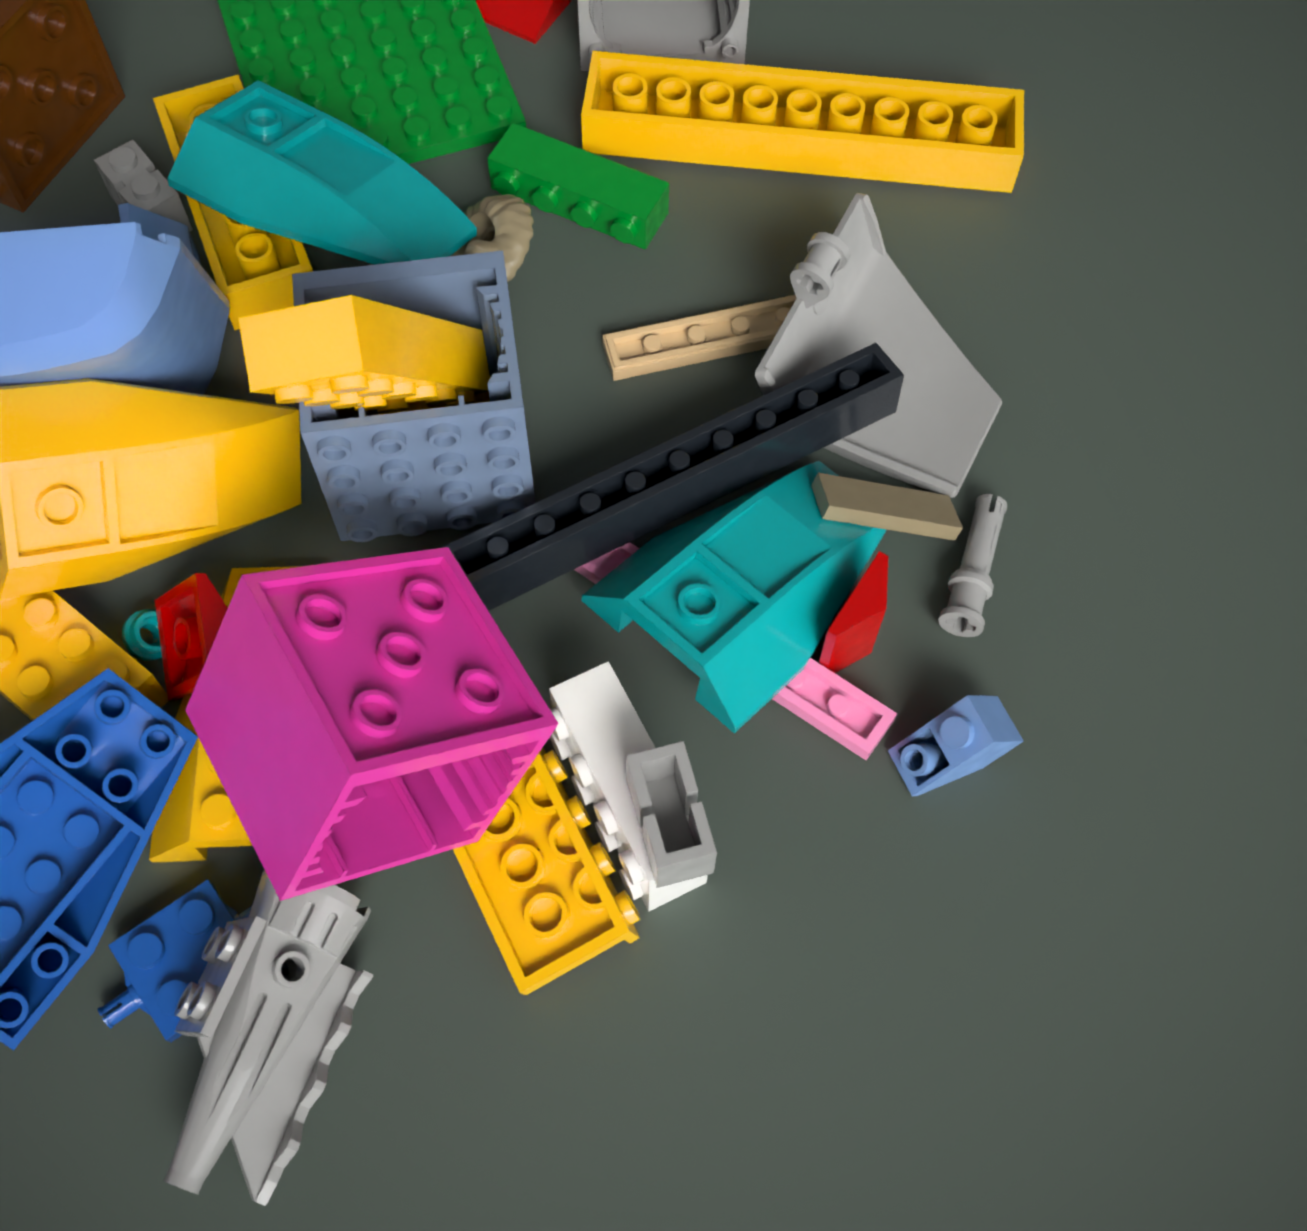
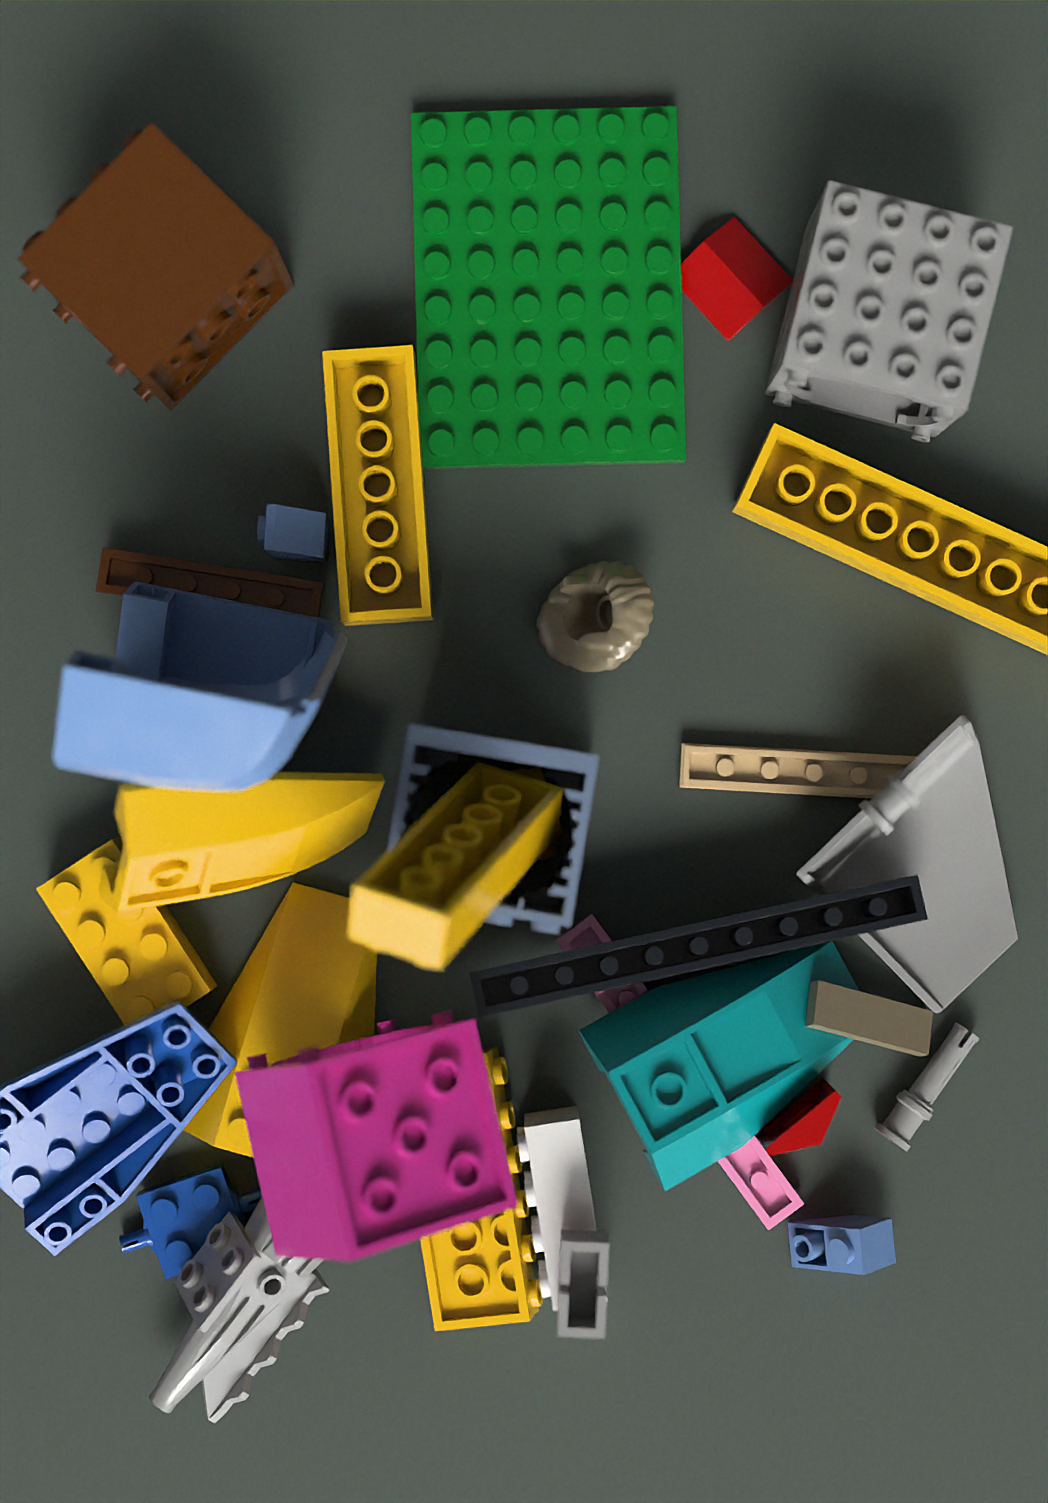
camera: 20 degrees right, 25 degrees up
(131, 635) = (218, 938): teal plate -> none
(134, 180) = (293, 461): light grey piece -> none
(187, 628) = (249, 969): red slope -> none
(314, 181) = (461, 522): teal wedge -> none
(579, 185) = (712, 563): green brick -> none

